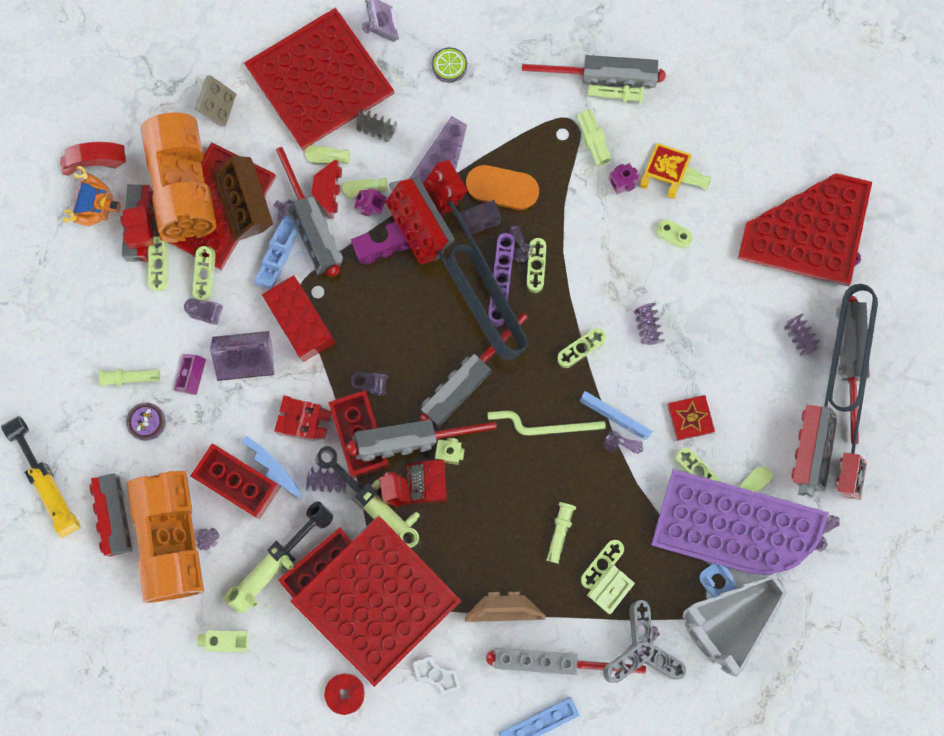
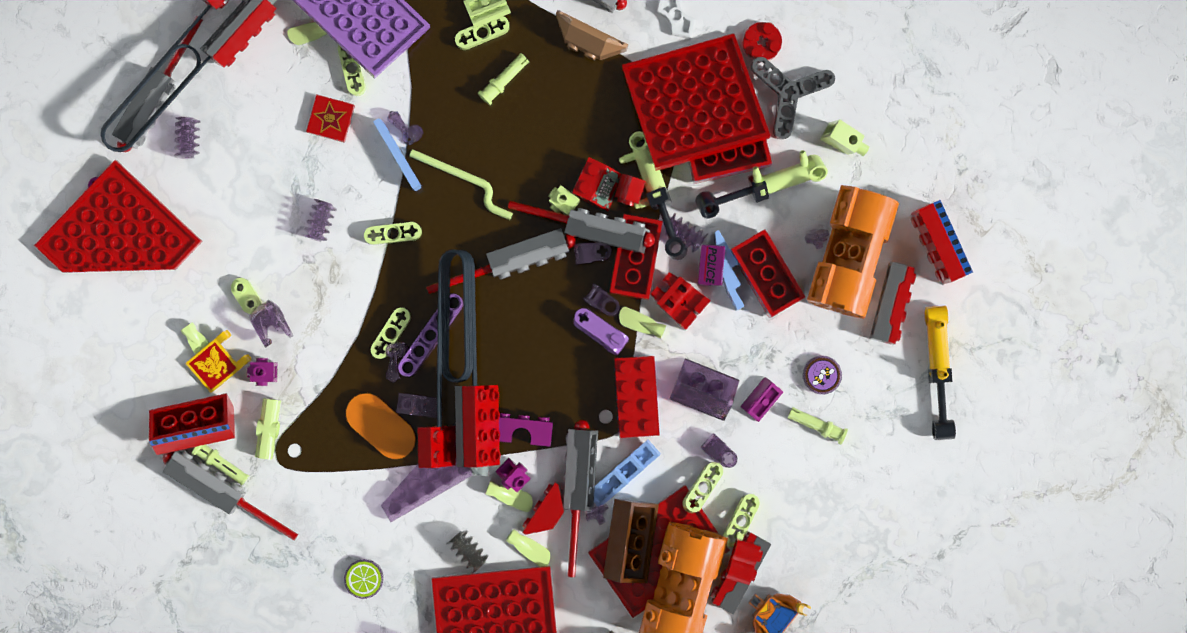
camera: 155 degrees left, 10 degrees up
(89, 590) = (941, 242): none -> red brick
(288, 462) = (711, 265): none -> magenta panel
(292, 667) = (784, 84): none -> dark grey piece
(327, 384) = (640, 322): none -> yellowish green piece
(355, 356) = (600, 331): none -> medium lavender piece
(403, 415) = (587, 252): none -> clear purple piece
(645, 224) = (265, 316): none -> clear purple helmet
(656, 106) = (191, 424): none -> red brick

